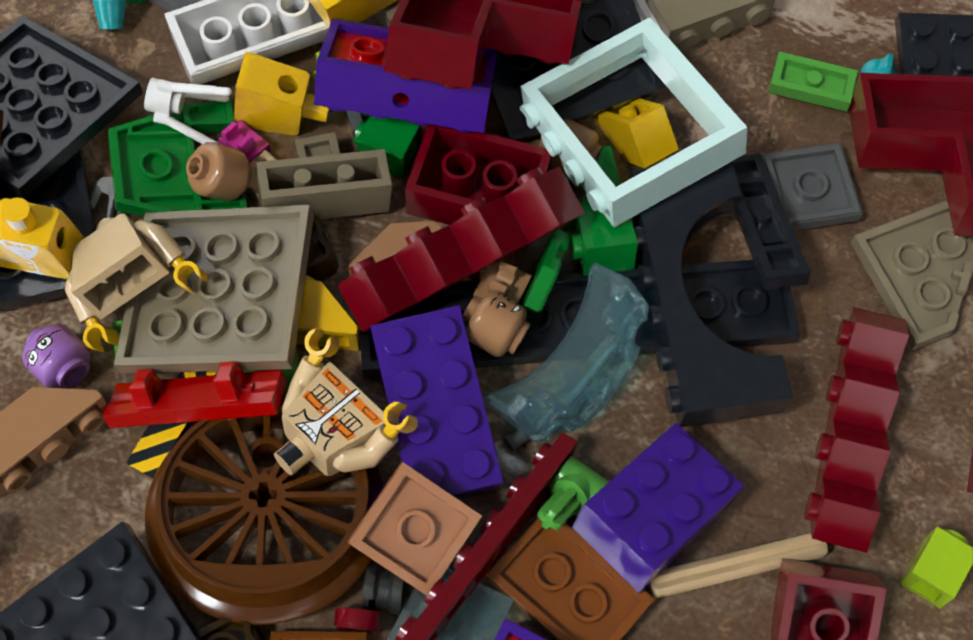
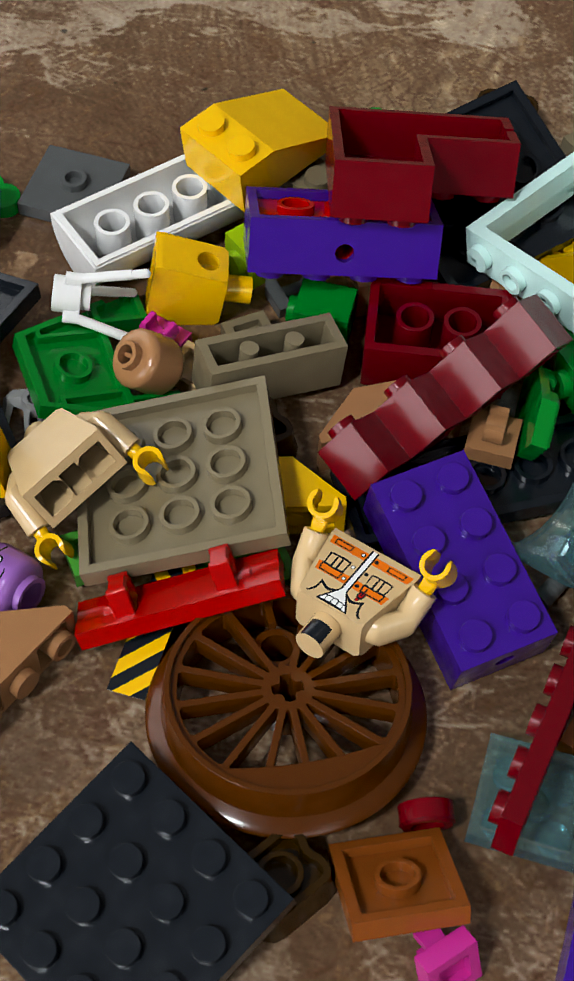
camera: 10 degrees left, 10 degrees down
(383, 590) = (449, 774): pearl dark grey wheel -> none
(414, 528) = (477, 693): nougat plate -> none
(495, 323) = (504, 469): medium nougat head -> none

